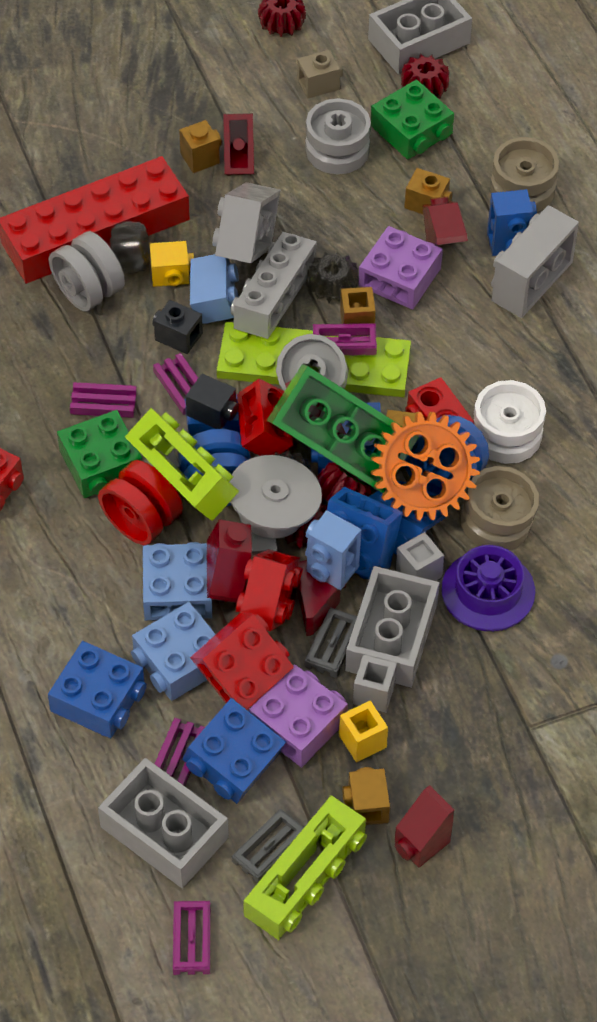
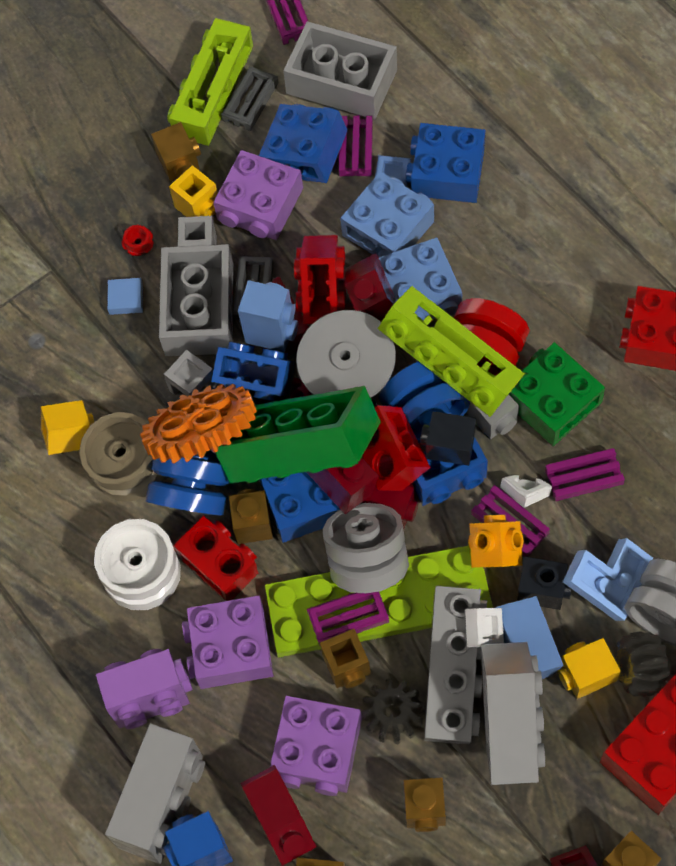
camera: 170 degrees right, 10 degrees up
(128, 305) = (608, 584): none -> light blue plate
(153, 715) = (393, 167): none -> medium blue tile
(158, 398) = (525, 491): none -> white tile
(204, 350) = (495, 542): none -> light orange brick
(242, 281) = (484, 626): none -> white tile
(243, 660) = (320, 200): red brick -> none
(332, 215) = (424, 804): none -> pearl gold brick
(424, 828) = (116, 132): dark red slope -> none
(436, 712) = (137, 233): none -> red plate
(448, 349) = (227, 642): none -> medium lavender brick
(461, 671) = (125, 296): none -> medium blue tile
(488, 589) = (120, 379): dark purple piece -> none
(525, 328) = (144, 688): none -> medium lavender brick
(546, 550) = (64, 426): none -> yellow brick

